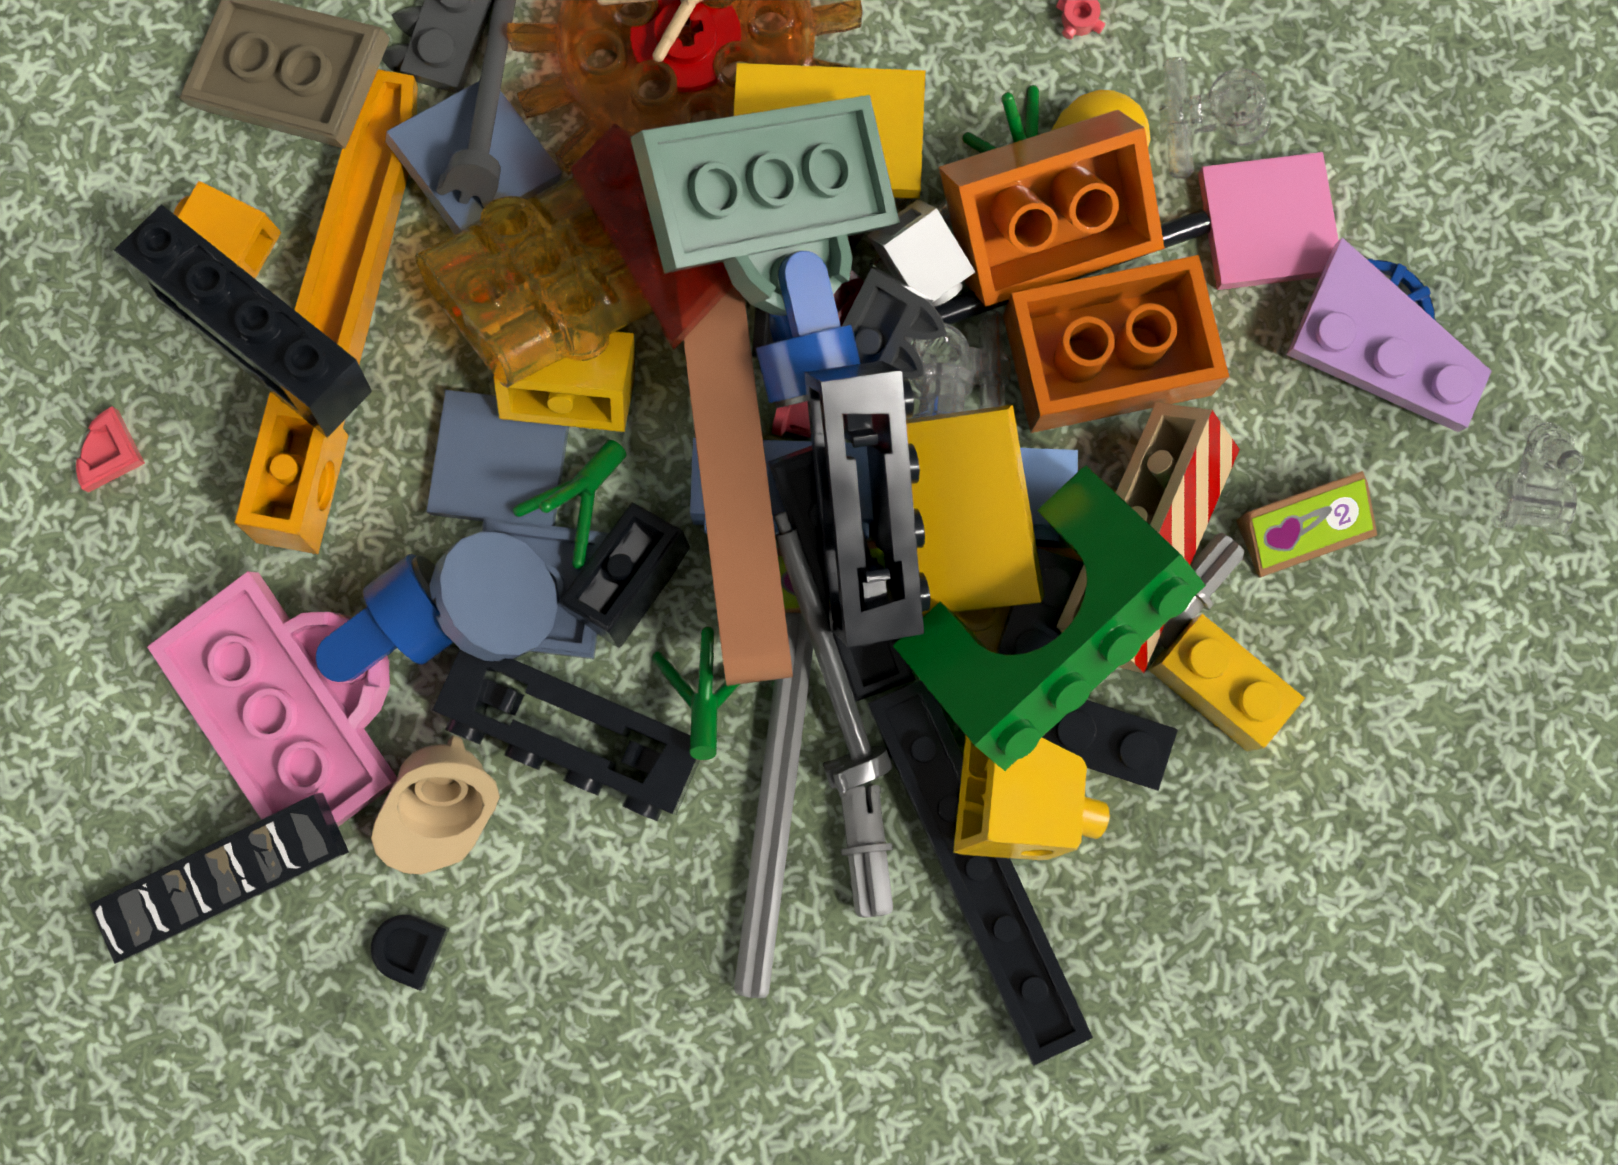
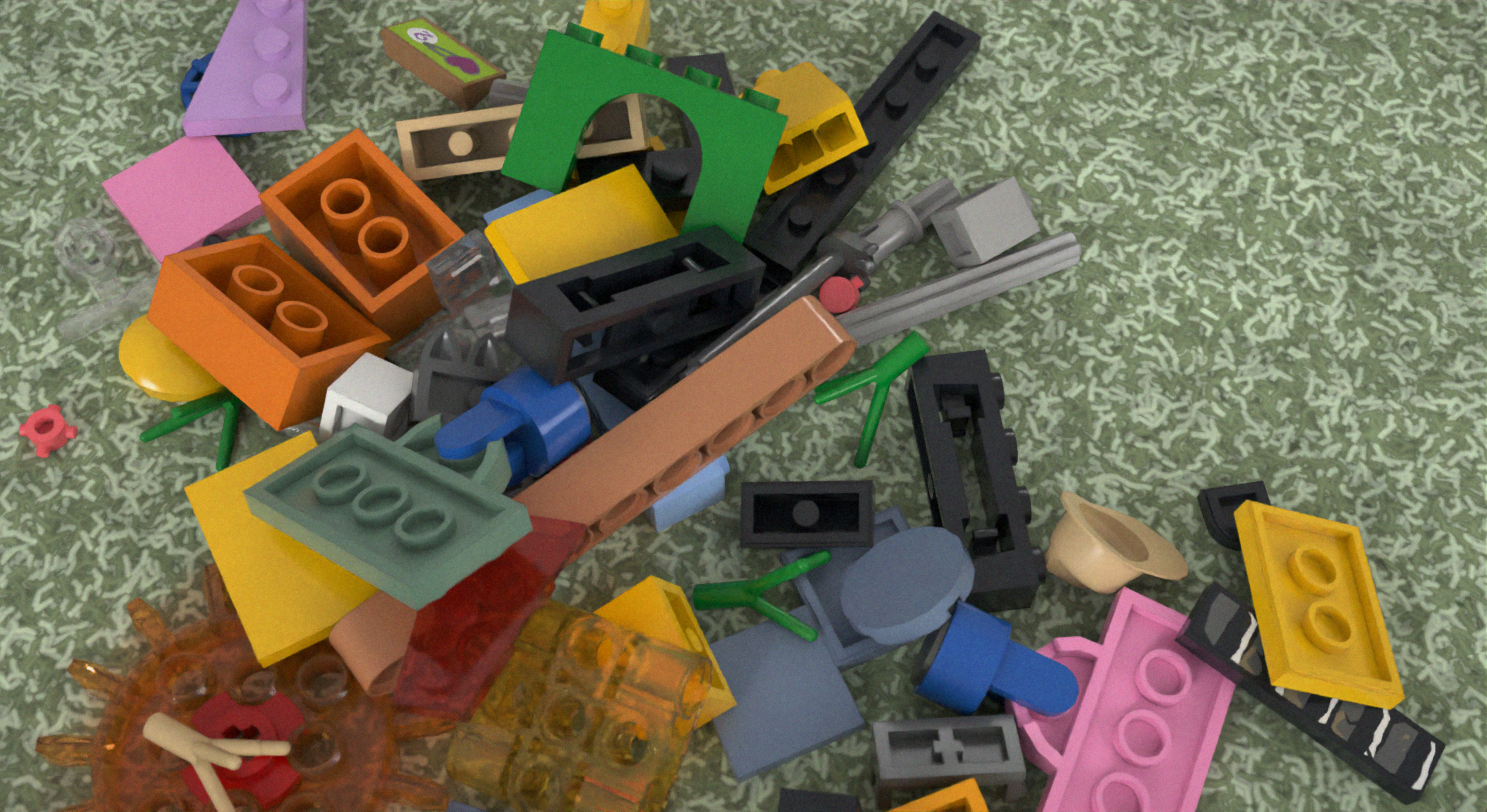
camera: 120 degrees left, 20 degrees down
(277, 937) = (1317, 606): none -> yellow tile
(344, 541) = (945, 753): none -> dark grey hinge
(811, 916) = (985, 222): none -> light grey brick
(824, 738) = (840, 294): none -> coral piece
(1018, 386) = (464, 271): none -> clear tile

